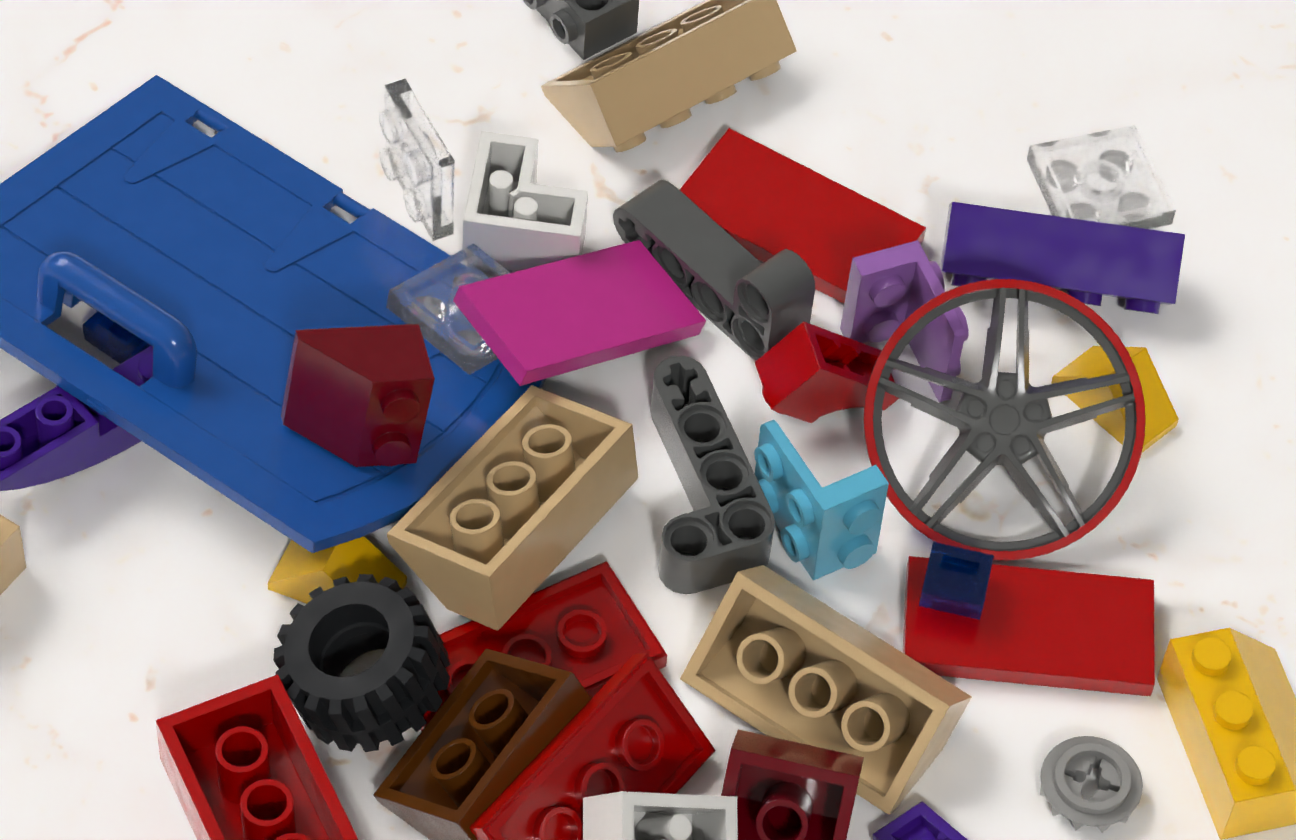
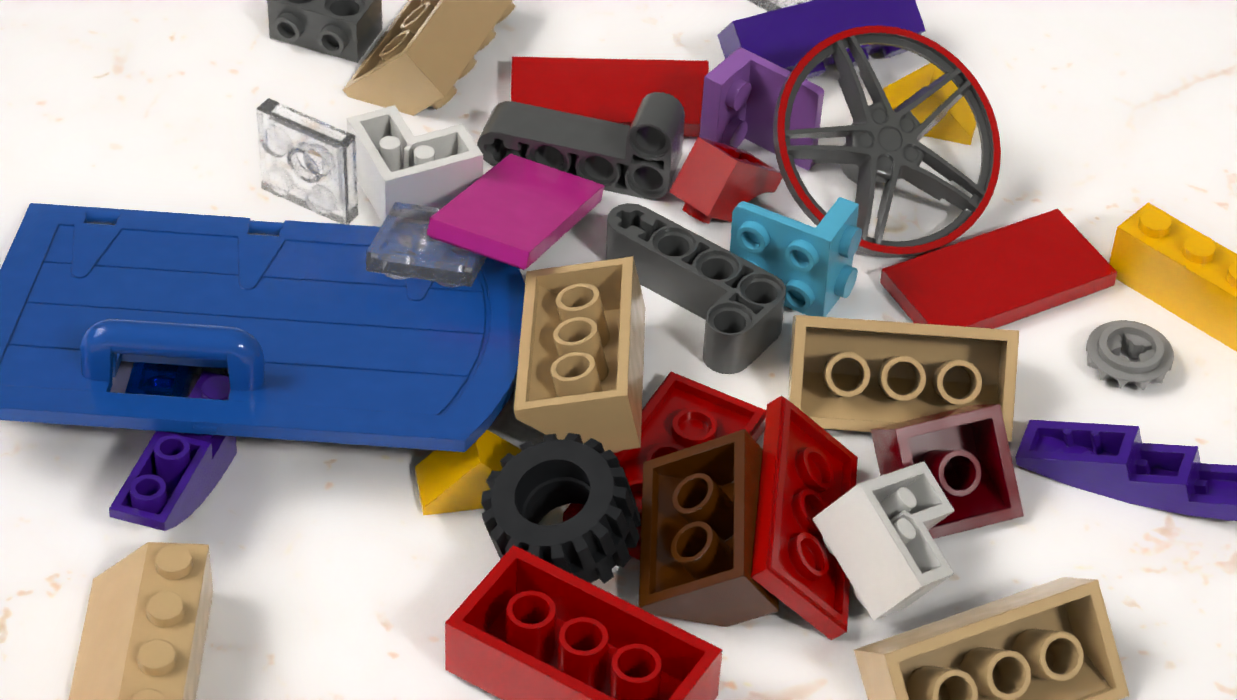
camera: 30 degrees left, 10 degrees down
(360, 392) = (425, 313): dark red slope -> none
(956, 580) = (936, 263): clear blue plate -> none

